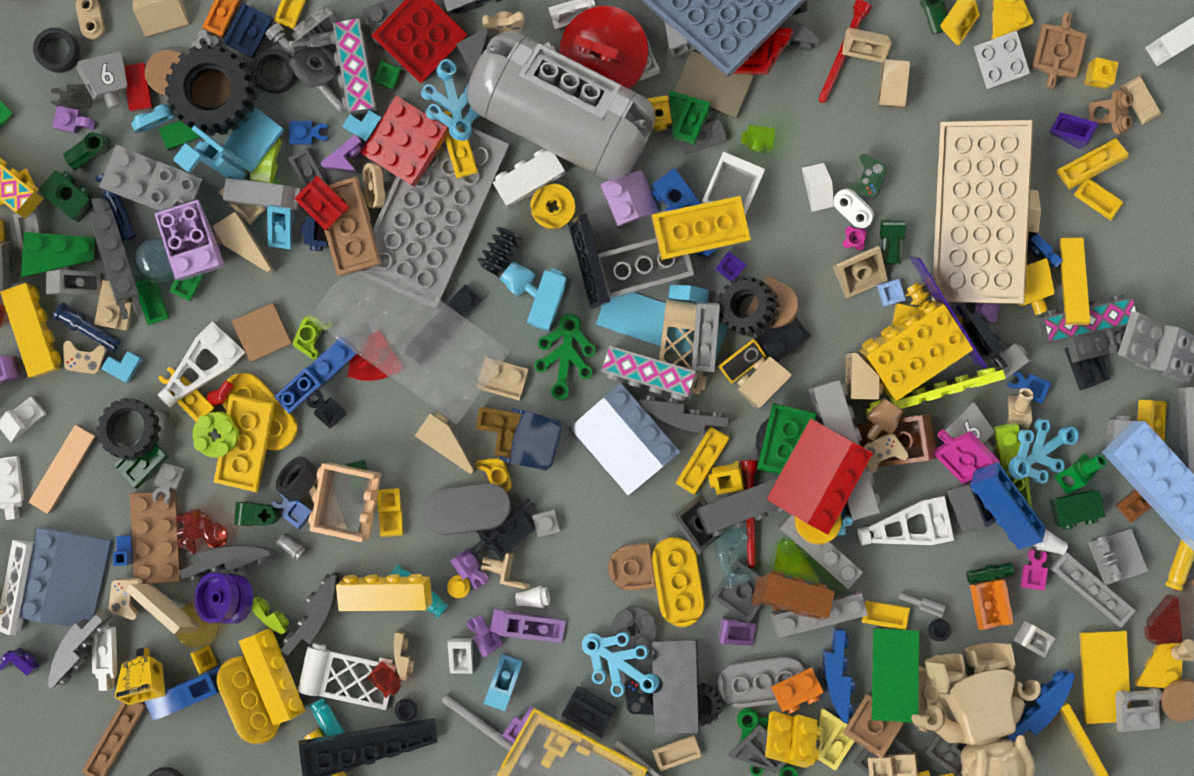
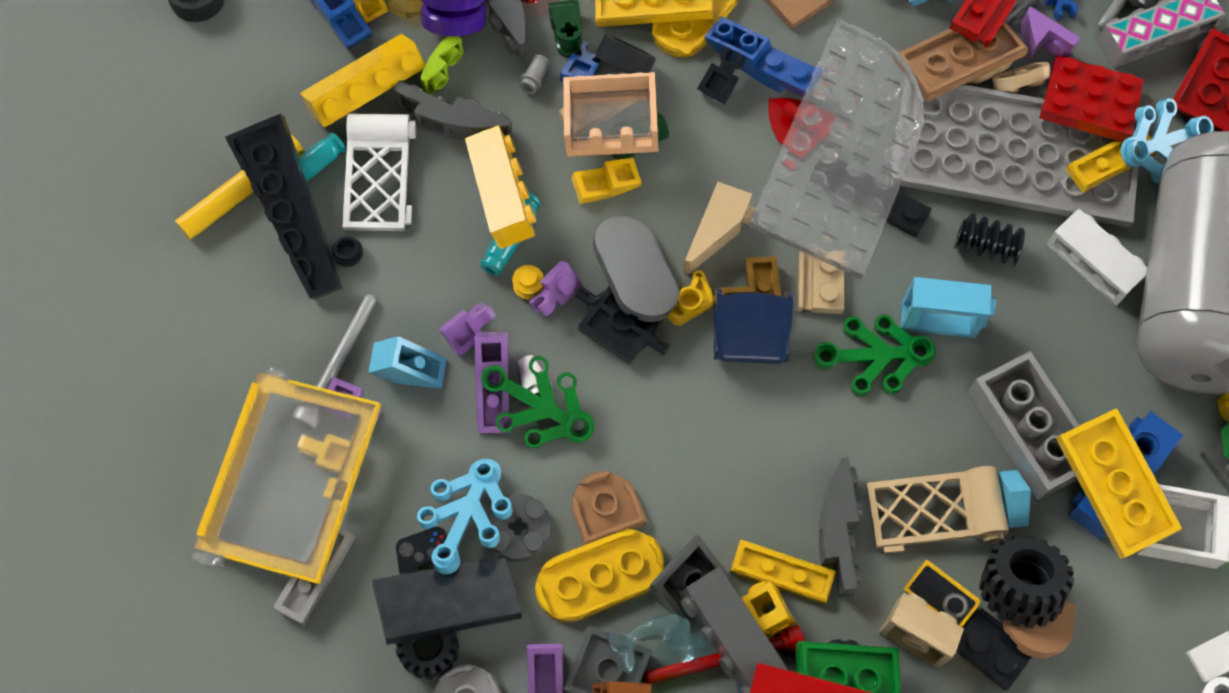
camera: 75 degrees right, 20 degrees down
(244, 702) = (321, 56): yellow tile -> none
(307, 338) = (805, 42): lime piece -> none
(309, 230) = (935, 19): dark blue bracket -> none
(362, 129) = (1089, 52): medium azure piece -> none
(385, 679) = (384, 214): clear red bracket -> none
(387, 75) = (1163, 68): green tile -> none
(403, 661) = (409, 232): tan slope -> none
(460, 655) = (434, 302): white slope -> none
(503, 568) = (566, 332): tan bracket -> none
(519, 279) = (960, 266): medium azure piece -> none
(540, 210) = (1066, 312): yellow plate -> none
(546, 523) = (640, 377): light grey plate -> none
(556, 597) = (542, 406): none -> green plant
(588, 262) = (1016, 349): black tile -> none
(588, 711) = (388, 488): black plate -> none
(624, 439) = (785, 456): slope -> none
(629, 198) = (1118, 383): lavender slope -> none
(644, 320) = (954, 444): medium azure window -> none
(650, 372) = (889, 465): brick -> none
(677, 753) = (348, 628): tan tile -> none
(705, 336) = (964, 528): light grey plate -> none
(730, 266) = (1072, 545): dark purple plate -> none

